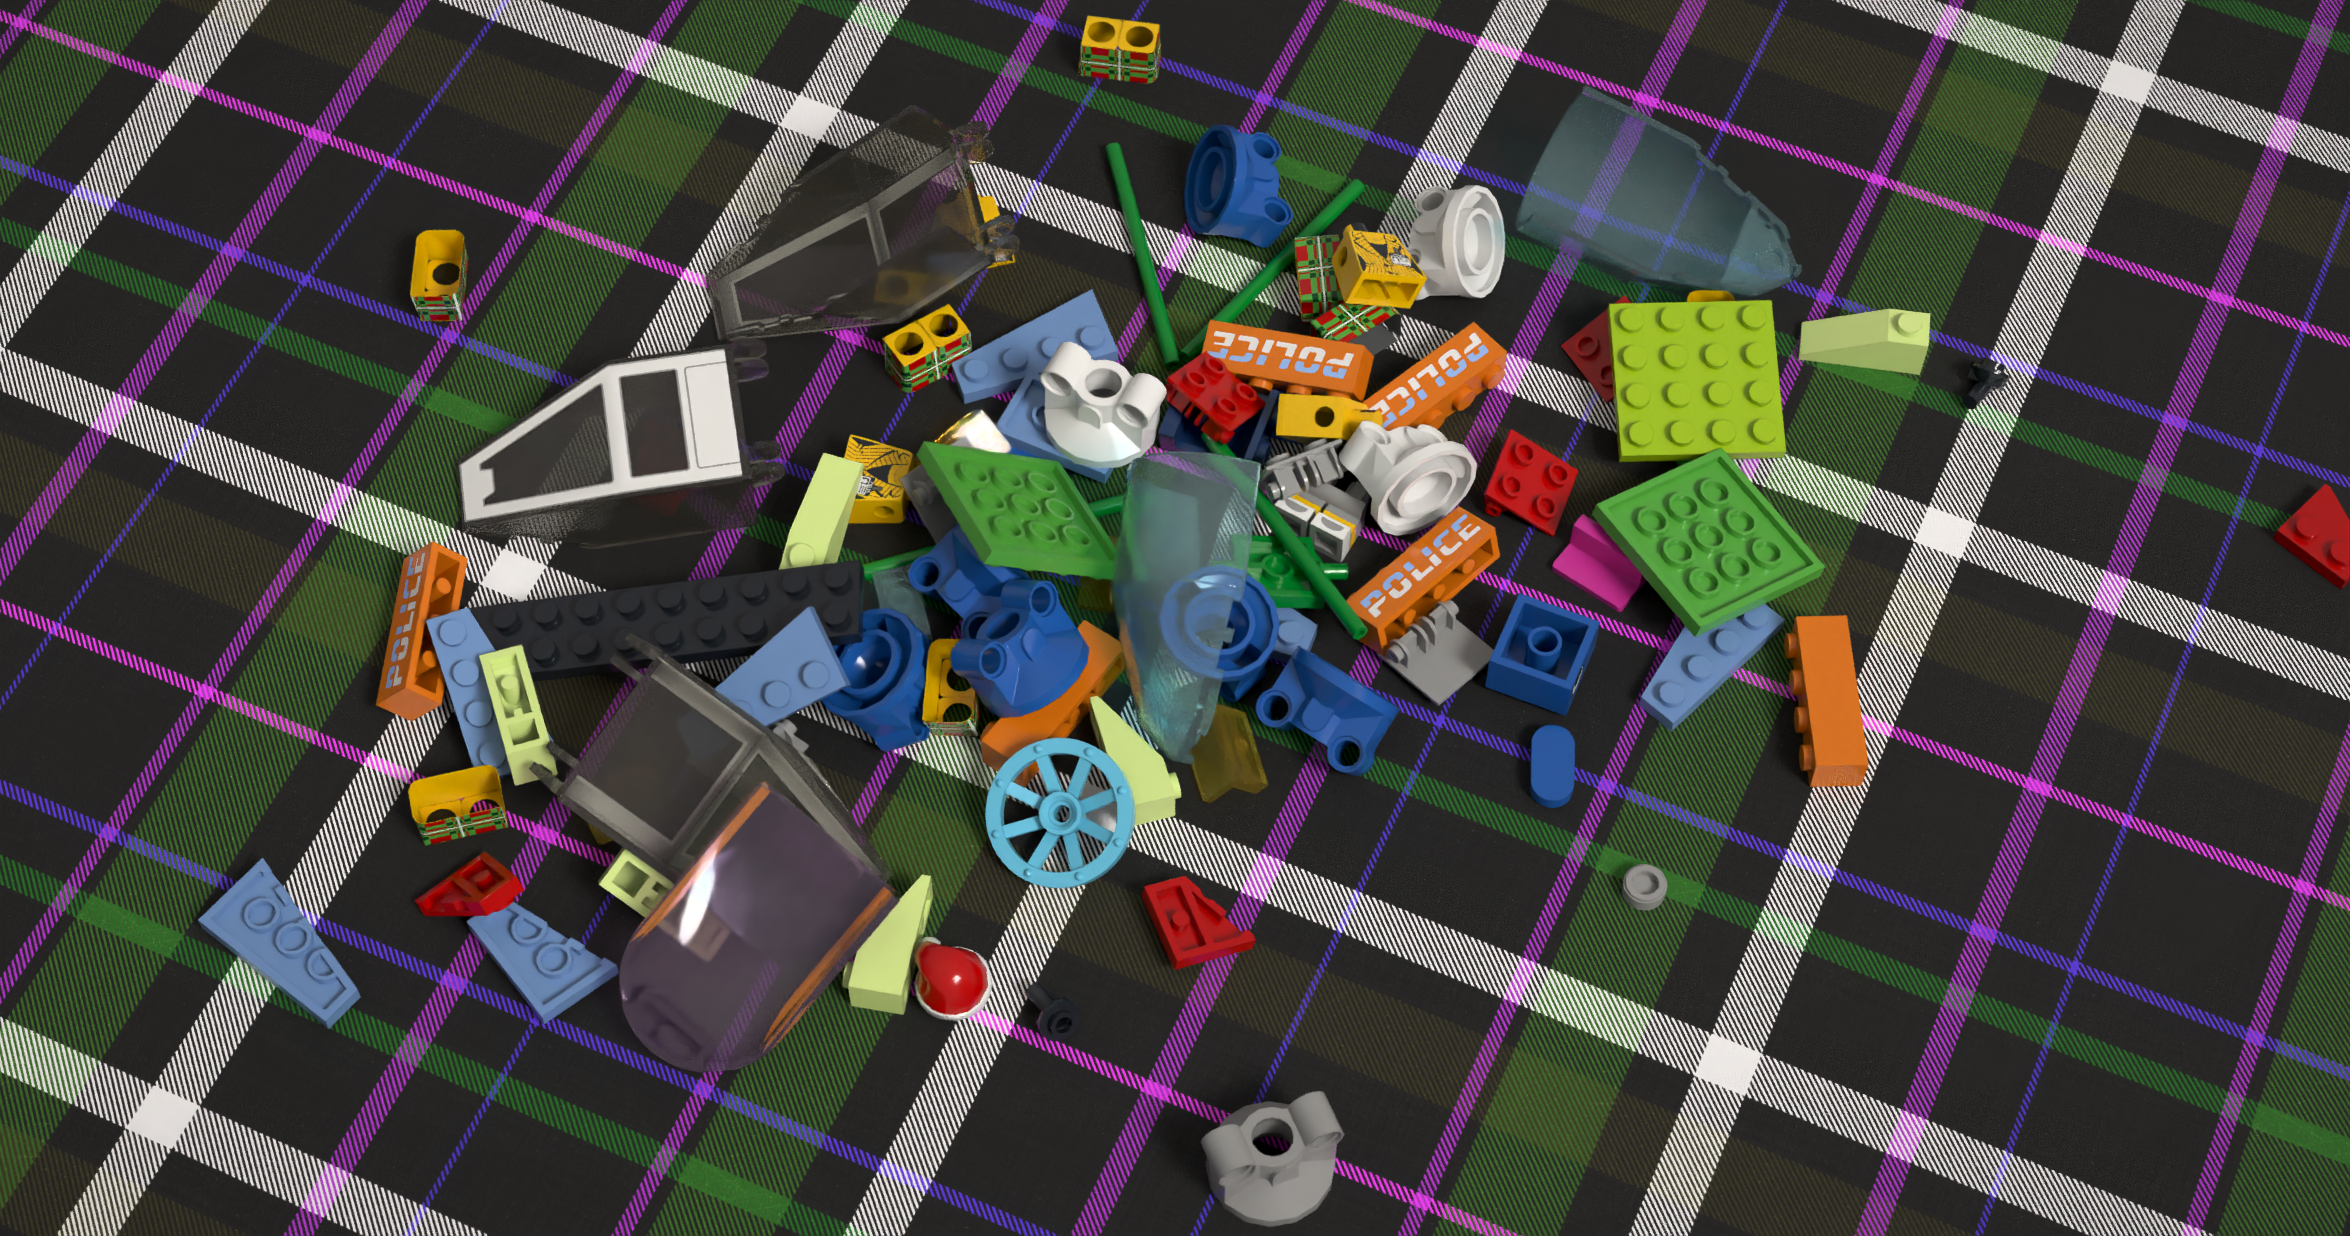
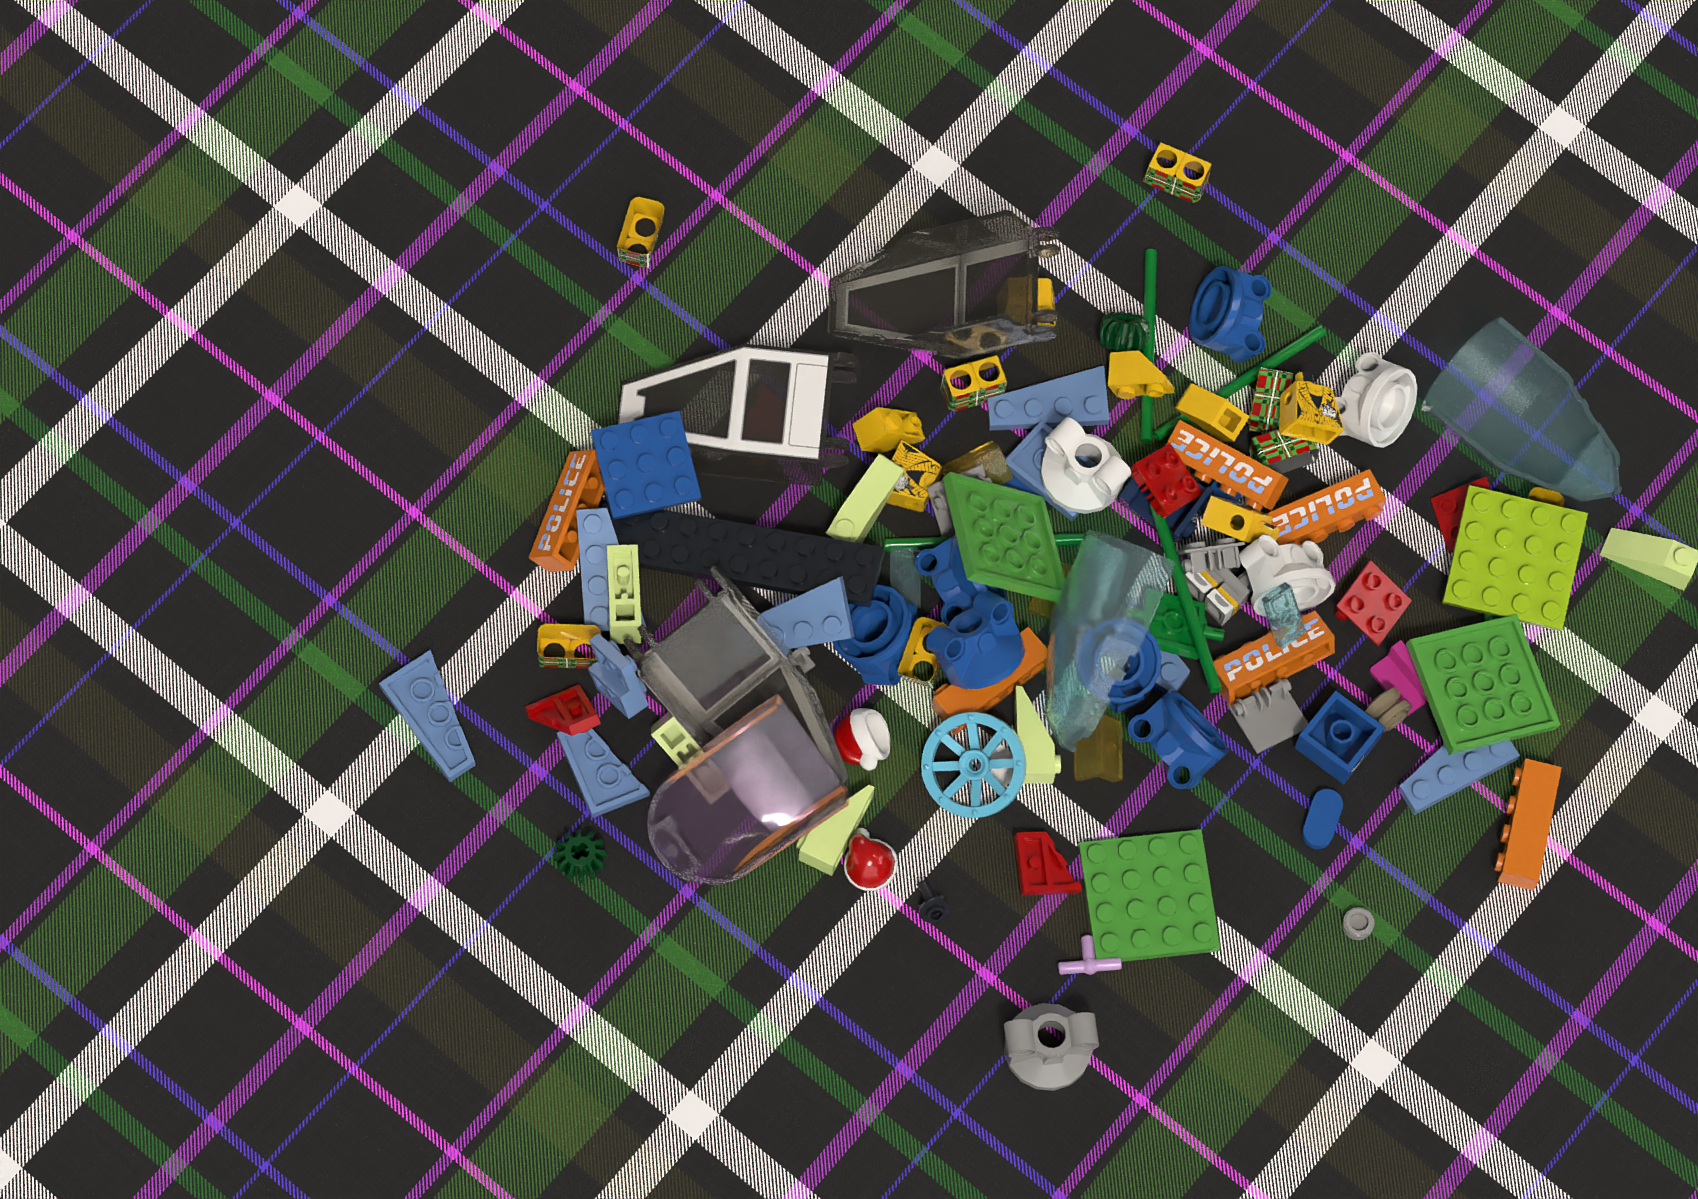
camera: 10 degrees right, 10 degrees up
(509, 544) = (645, 465): none -> blue plate
(533, 822) = (616, 677): none -> medium blue plate
(537, 1078) = (585, 865): none -> dark green gear
(826, 428) = (885, 428): none -> yellow slope
(898, 818) = (863, 738): none -> white piece
(1106, 241) = (1124, 331): none -> dark green gear
(1139, 287) = (1135, 375): none -> yellow slope
(1249, 303) = (1212, 413): none -> yellow slope
(1294, 1036) = (1089, 964): none -> lavender piece
(1349, 927) = (1149, 896): none -> bright green plate
(1421, 513) = (1283, 615): none -> clear light blue plate
(1597, 602) = (1388, 709): none -> dark tan wheel

